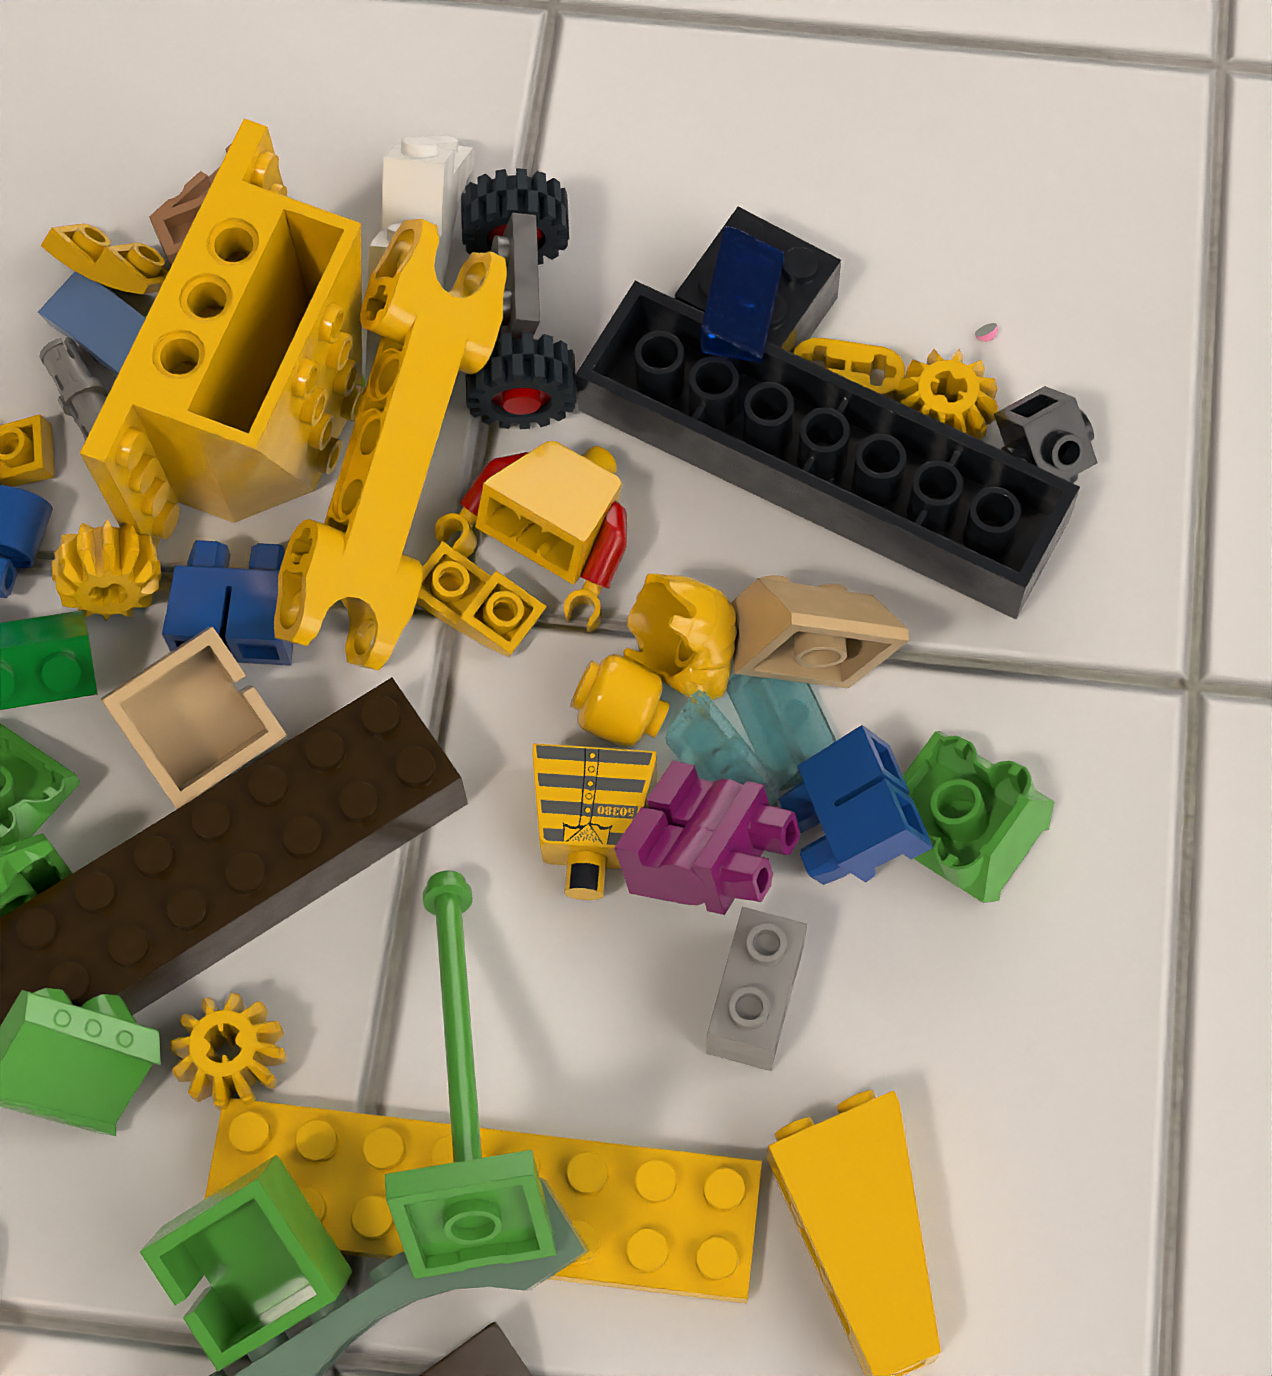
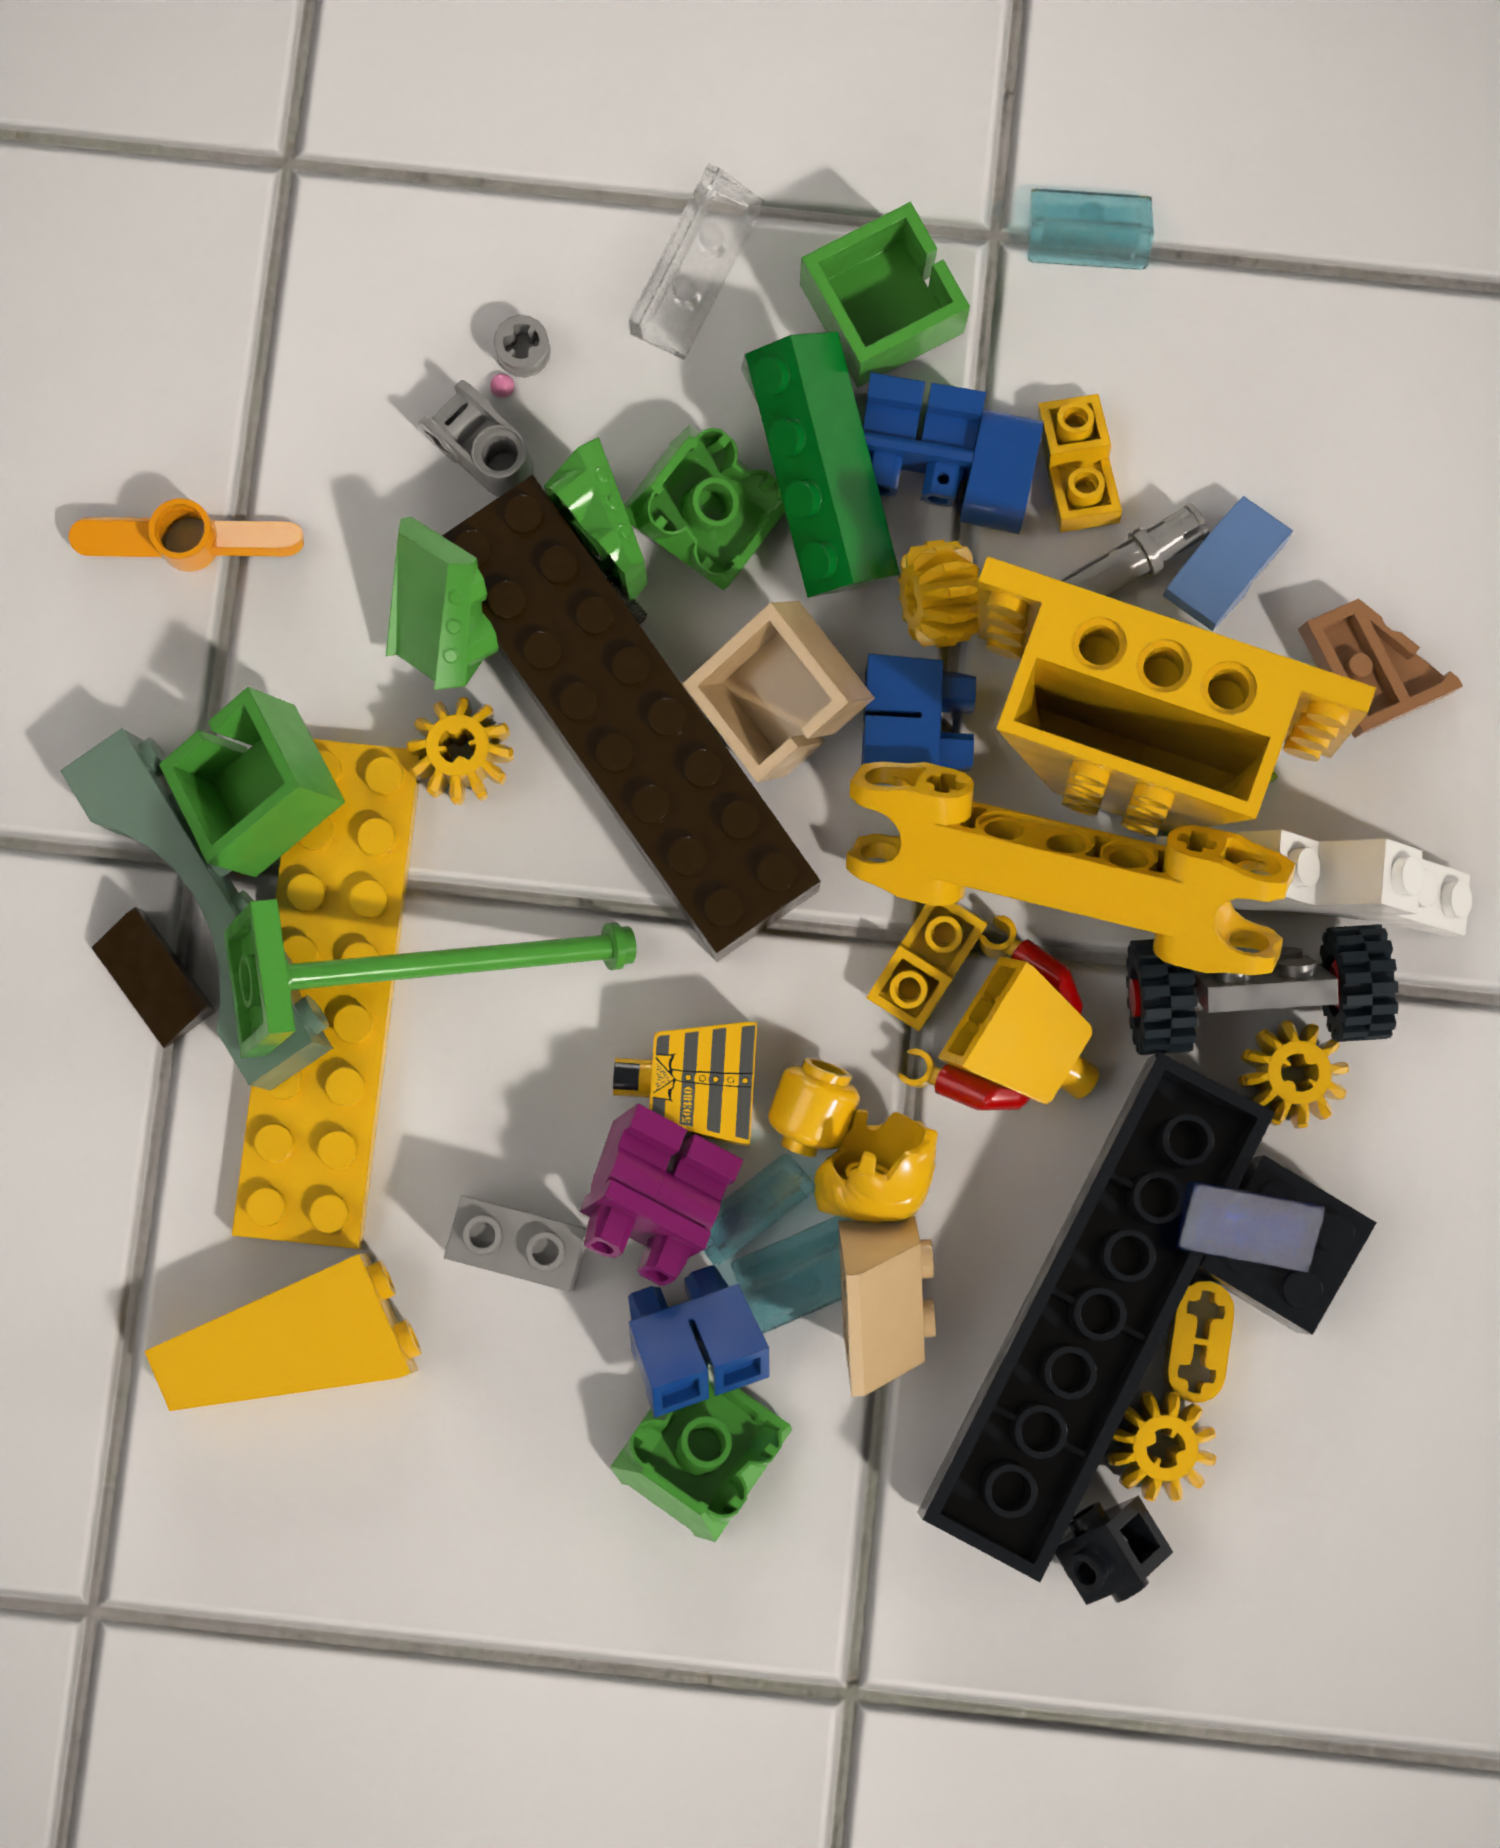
camera: 85 degrees right, 15 degrees up
(122, 267) = (1291, 578): yellow slope -> none
(593, 280) = (1303, 1055): none -> yellow gear
(987, 332) = (1256, 1493): piece -> none

